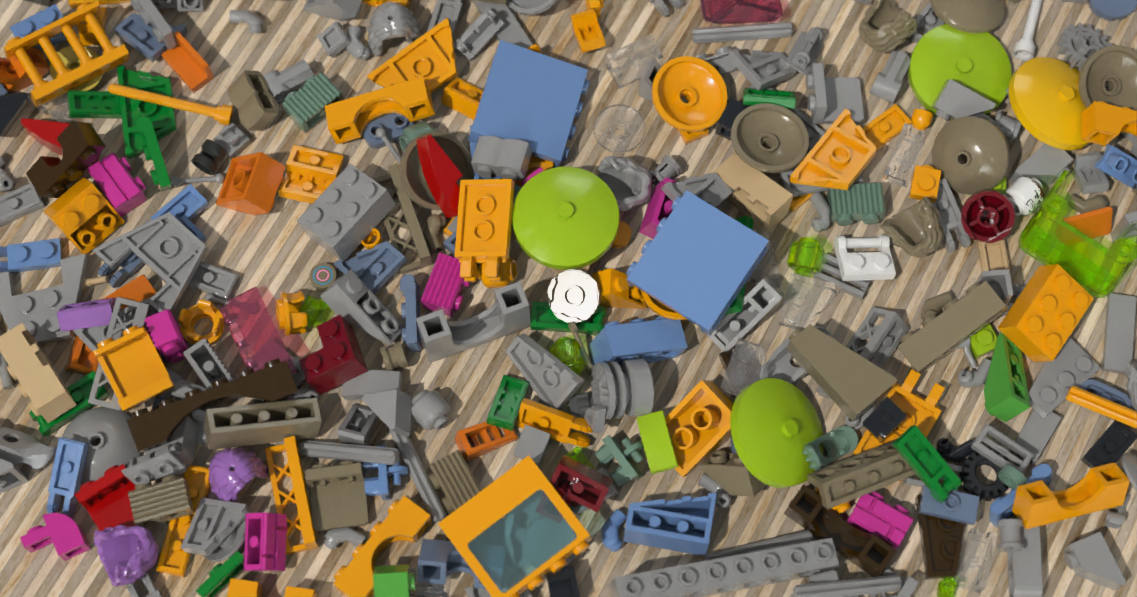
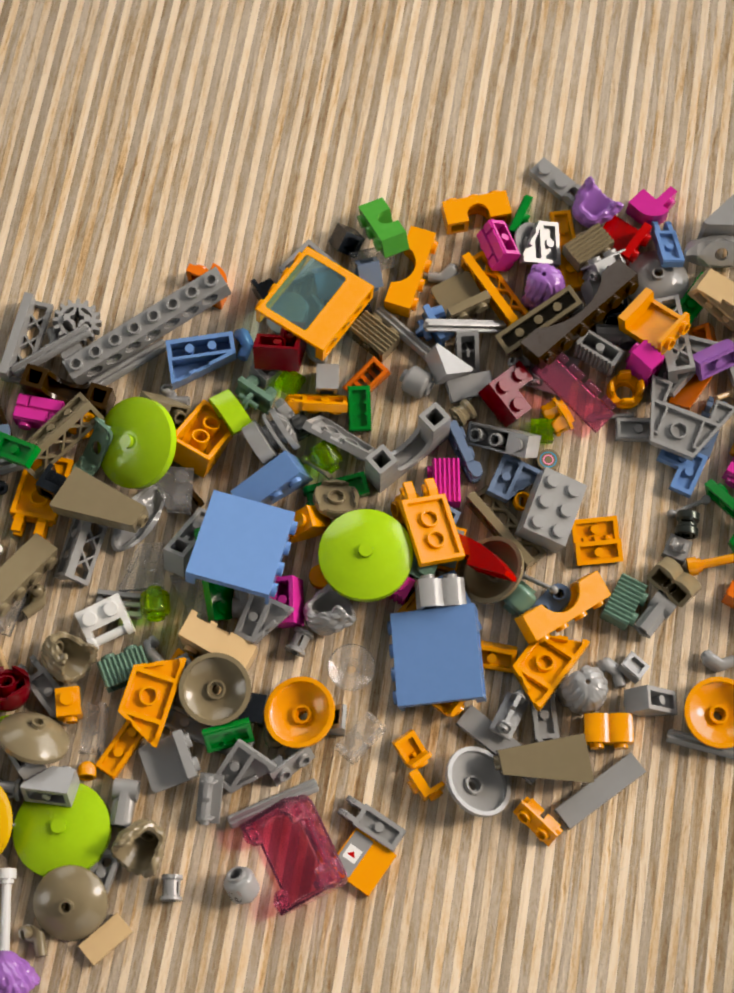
camera: 160 degrees right, 0 degrees up
(251, 184) = (641, 512): orange slope -> none
(431, 231) = (476, 525): dark tan arm -> none

